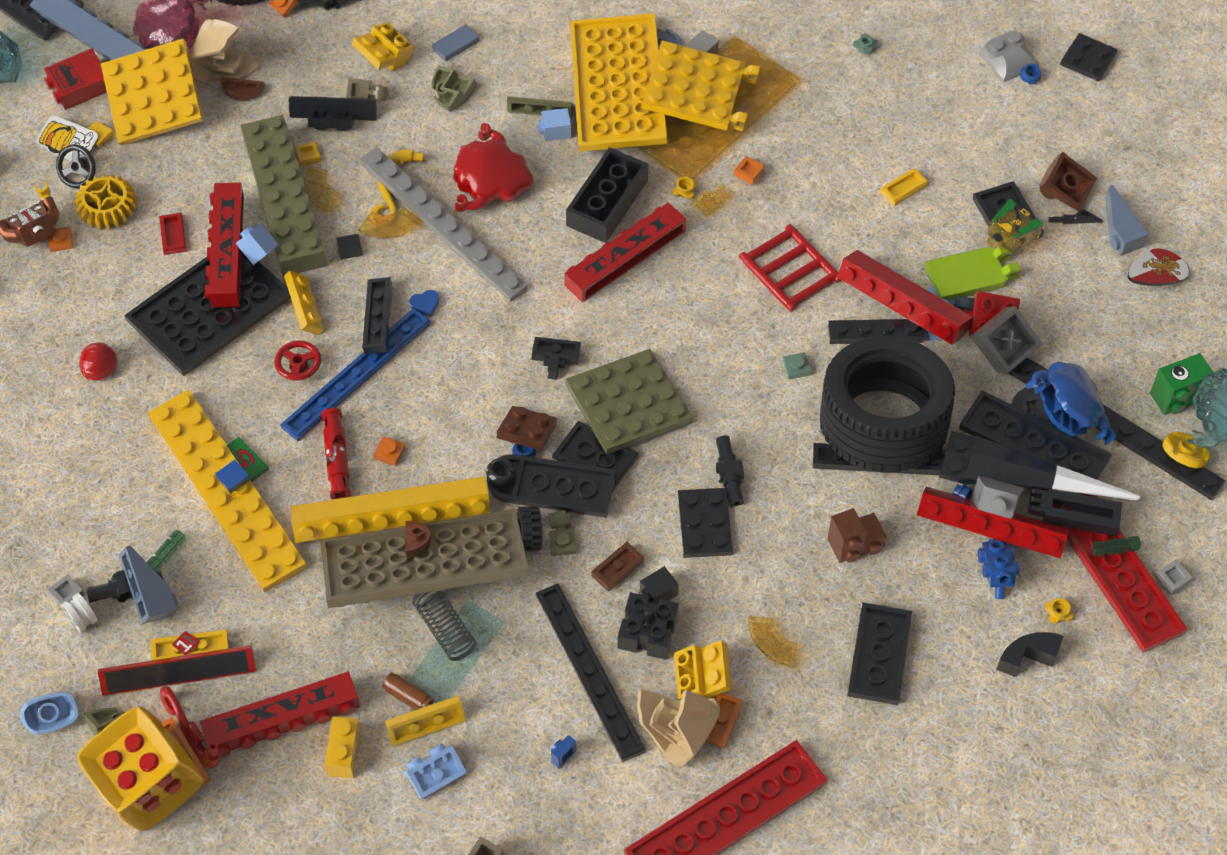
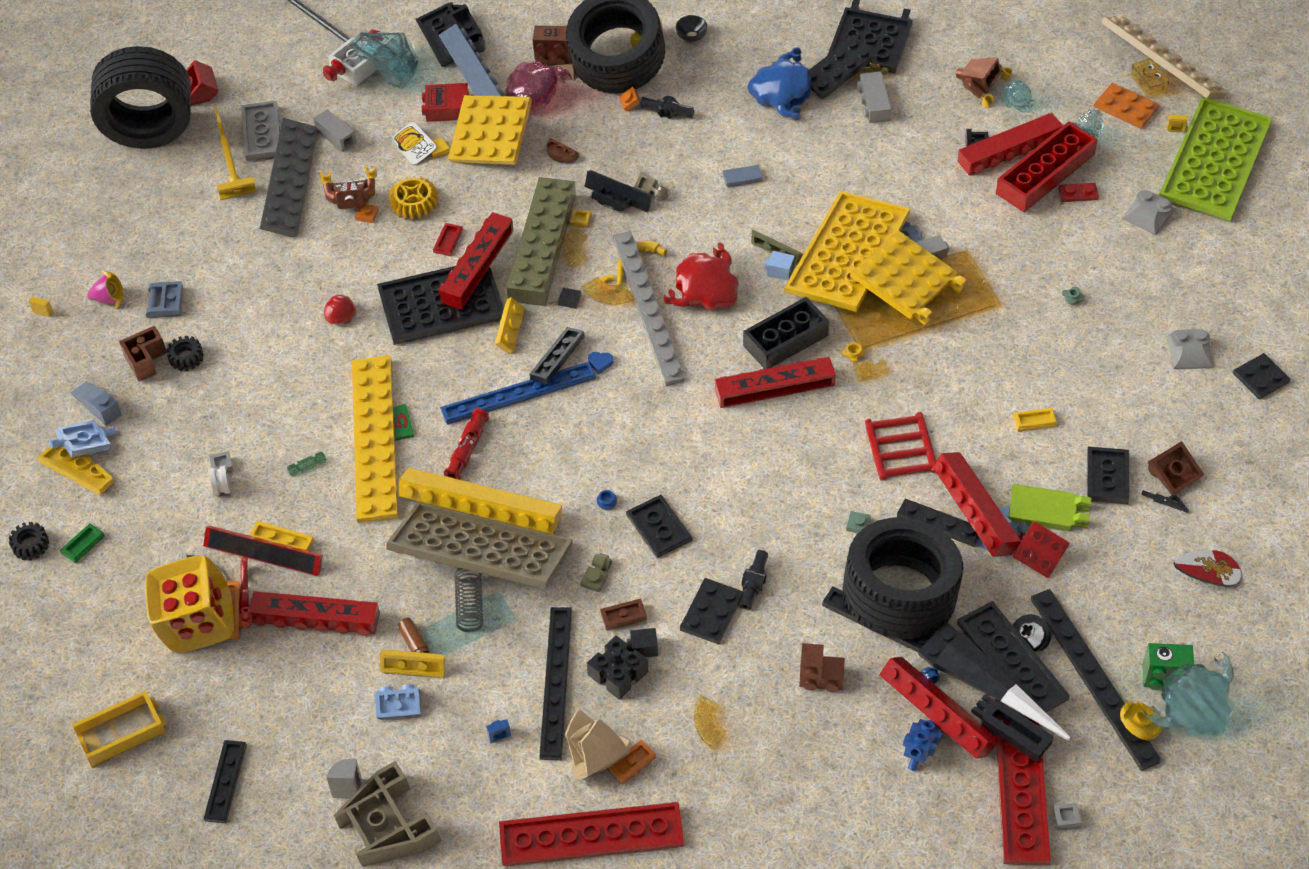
camera: 30 degrees right, 5 degrees down
(49, 712) = (159, 540): light blue piece -> none
(86, 164) = (409, 164): black piece -> none
(116, 588) = (263, 476): black pin -> none
(148, 589) = (274, 486): sand blue slope -> none
(185, 643) = (279, 533): red sticker -> none
(215, 58) = (553, 121): tan piece -> none
(232, 476) = (380, 429): blue tile -> none
(256, 243) = (496, 267): light blue brick -> none
(300, 370) = (480, 368): red piece -> none
(342, 747) = (342, 655): yellow brick -> none
(384, 47) = (683, 159): yellow brick -> none
(389, 451) = (507, 459): orange plate -> none
(417, 538) = (483, 527): copper plate -> none
(451, 87) = (714, 209): olive brick -> none
(526, 428) = (617, 483): copper plate -> none
(530, 527) = (571, 556): black tyre -> none
(551, 484) = (610, 532): black plate -> none
(555, 354) = (674, 438): black hinge -> none
(628, 401) = (708, 495): olive plate -> none
(703, 670) = (637, 718): yellow brick -> none
(749, 170) = (913, 358): orange plate -> none
(879, 653) = (785, 768): black plate -> none
(997, 497) = (949, 688): light grey torso -> none
(1006, 340) = (1037, 570): flat silver brick -> none
(1013, 228) = (1099, 485): clear yellow torso -> none
(1031, 69) = (1203, 367): blue plate -> none
(1036, 646) = (916, 818): black brick -> none
(1061, 604) = (953, 794): yellow plate -> none
(1071, 400) = (1059, 637): blue piece -> none
(1116, 546) = (1029, 769): clear green axle -> none
(1124, 228) = (1201, 524): sand blue slope -> none

